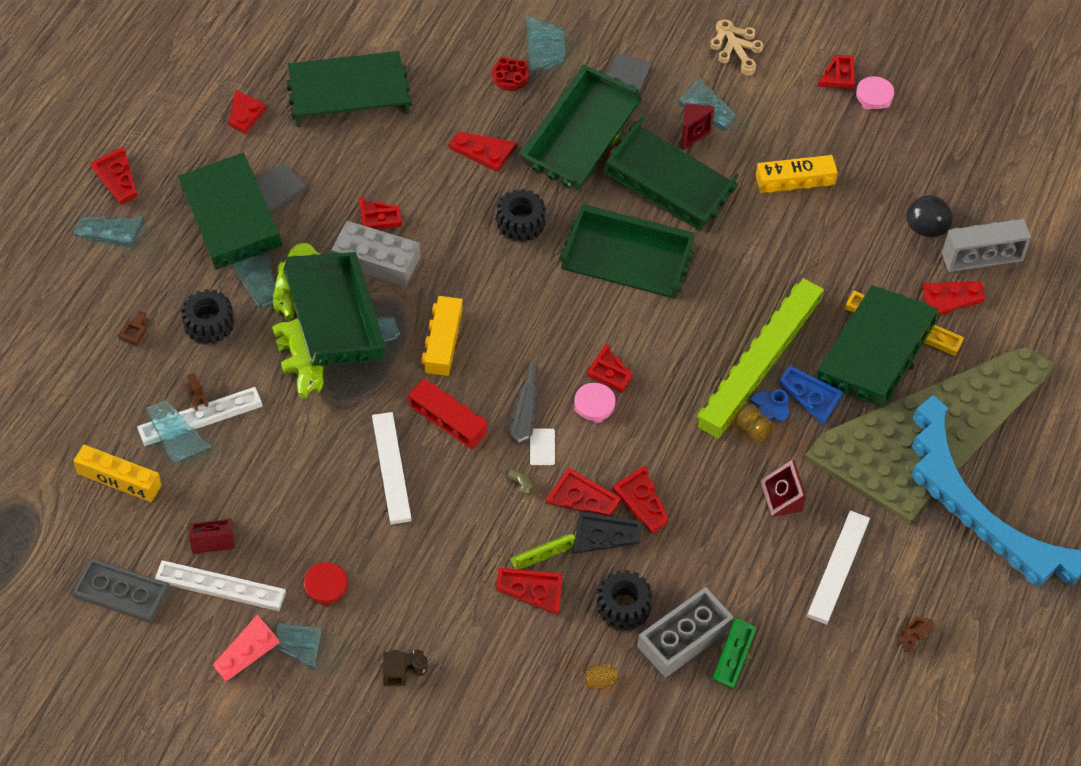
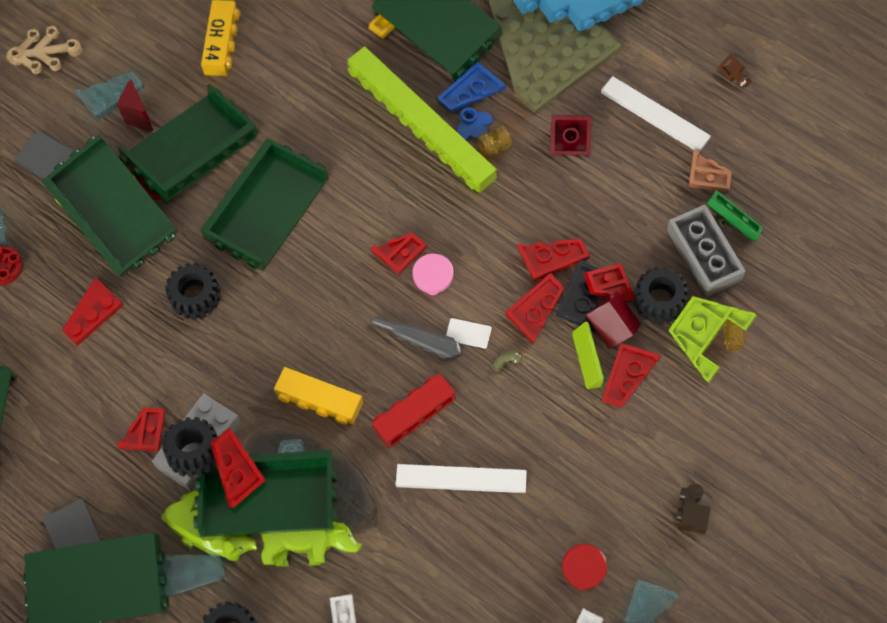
camera: 70 degrees left, 10 degrees up
(348, 275) = (235, 467): none -> red wing
(357, 249) = (185, 433): none -> black tyre
(586, 563) = (613, 320): none -> dark red slope
(597, 640) = (699, 326): none -> lime wing
(625, 550) = (609, 280): none -> red wing
(780, 625) = (708, 174): none -> nougat wing

